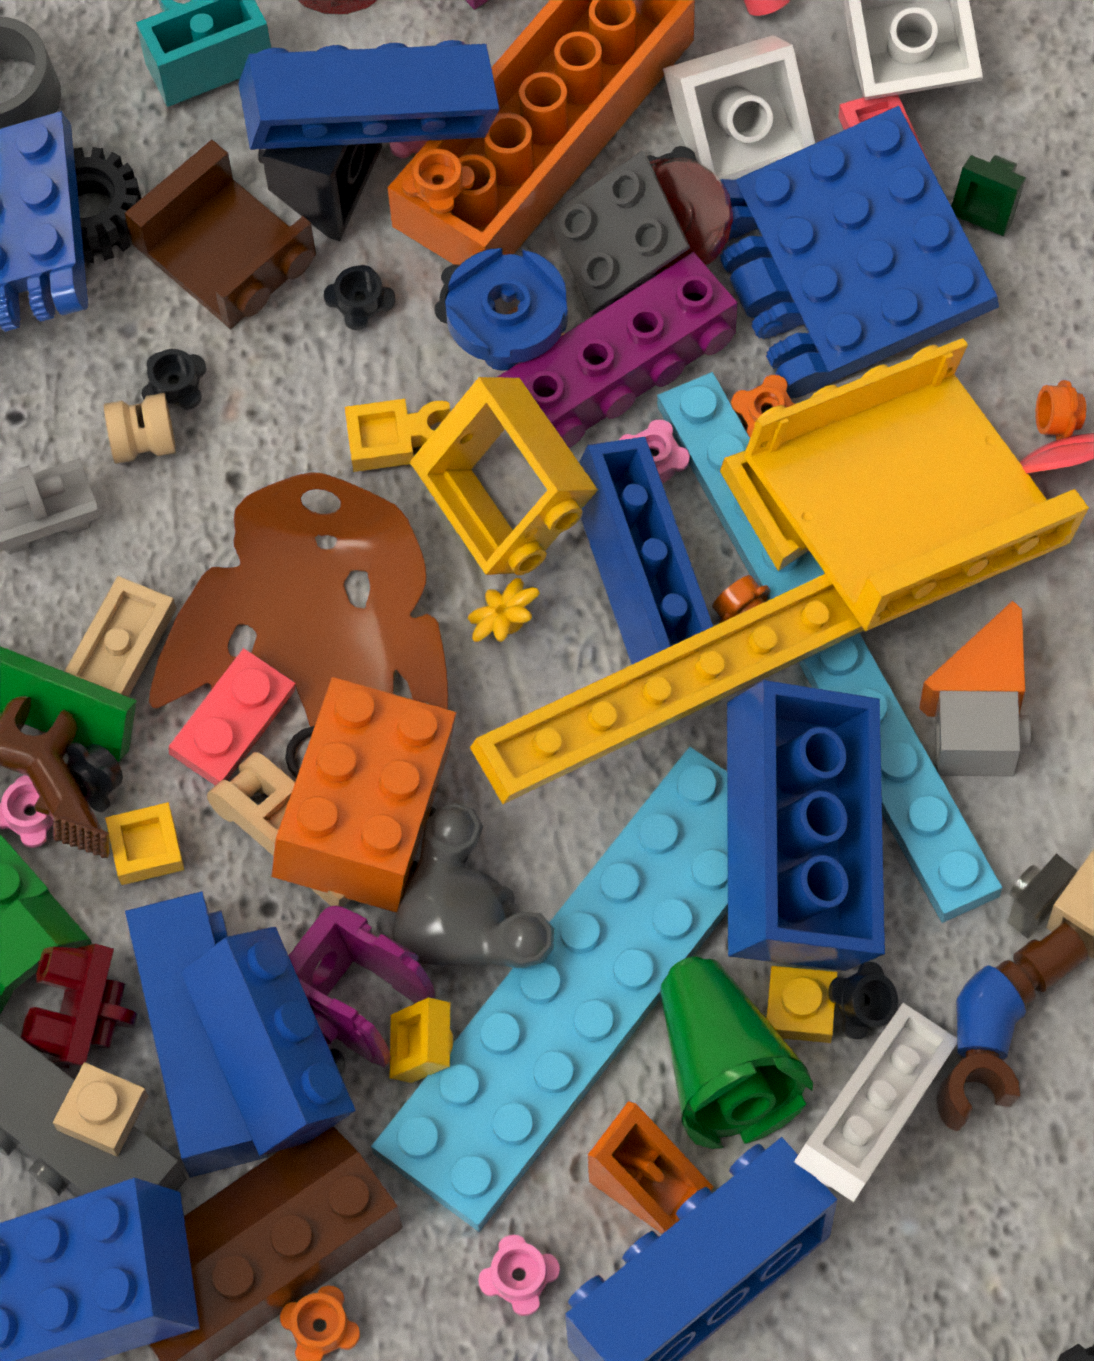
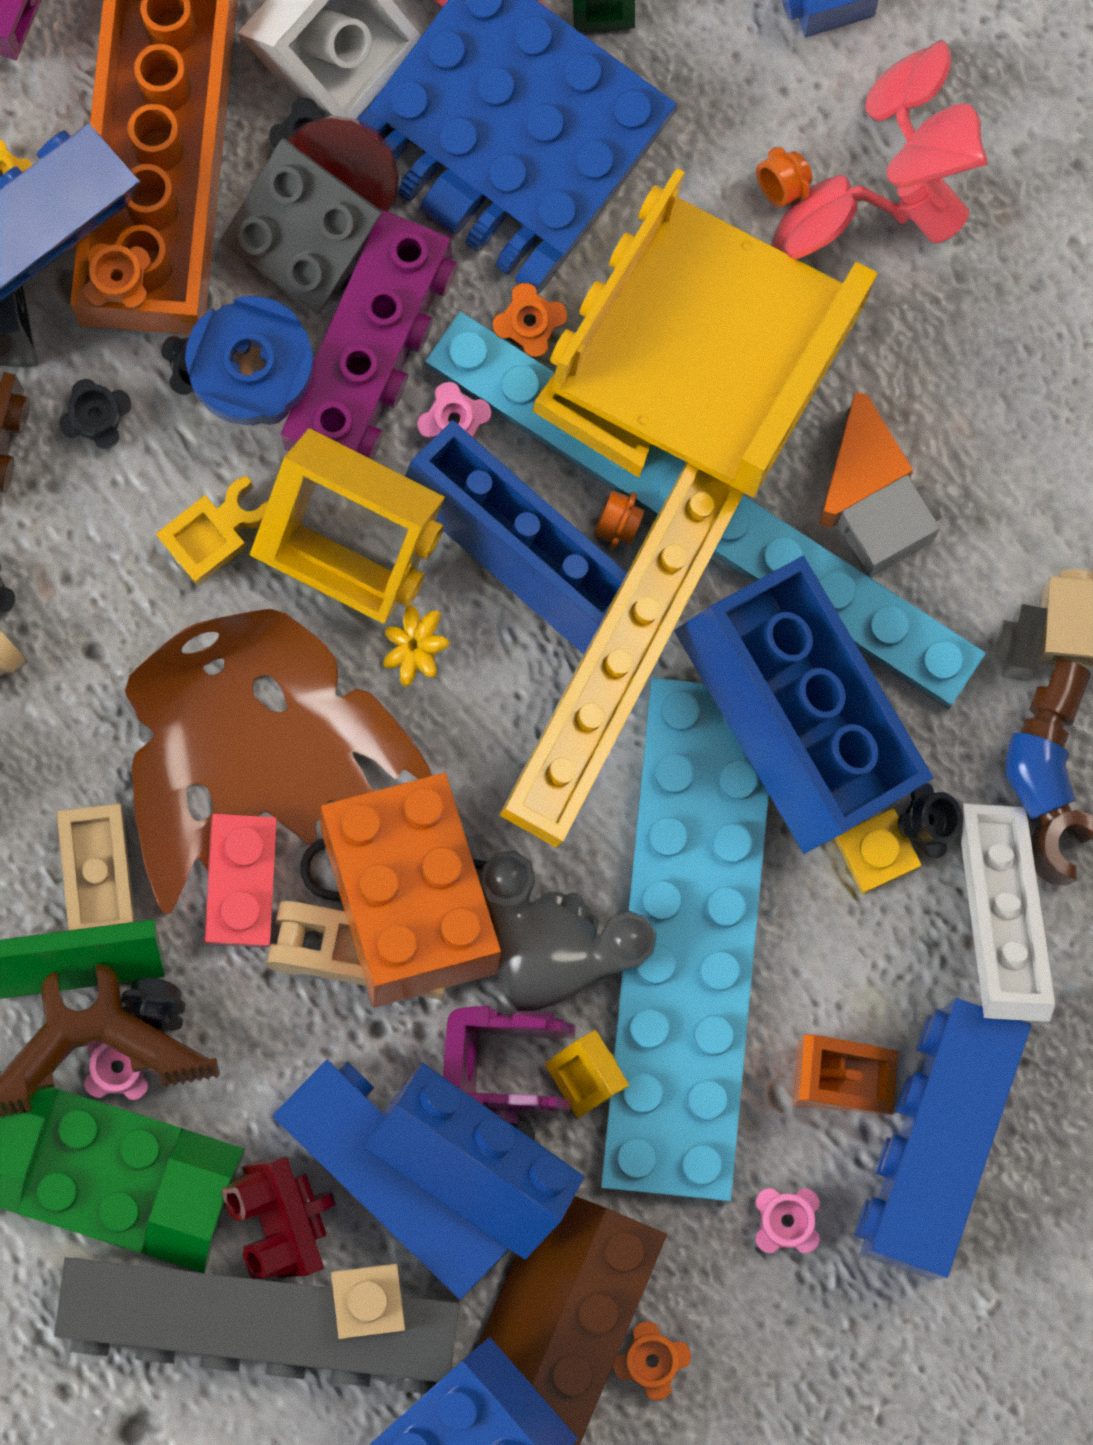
camera: 35 degrees left, 15 degrees up
(144, 843) = (239, 1039): yellow plate -> none
(727, 1058) = (847, 937): green cone -> none

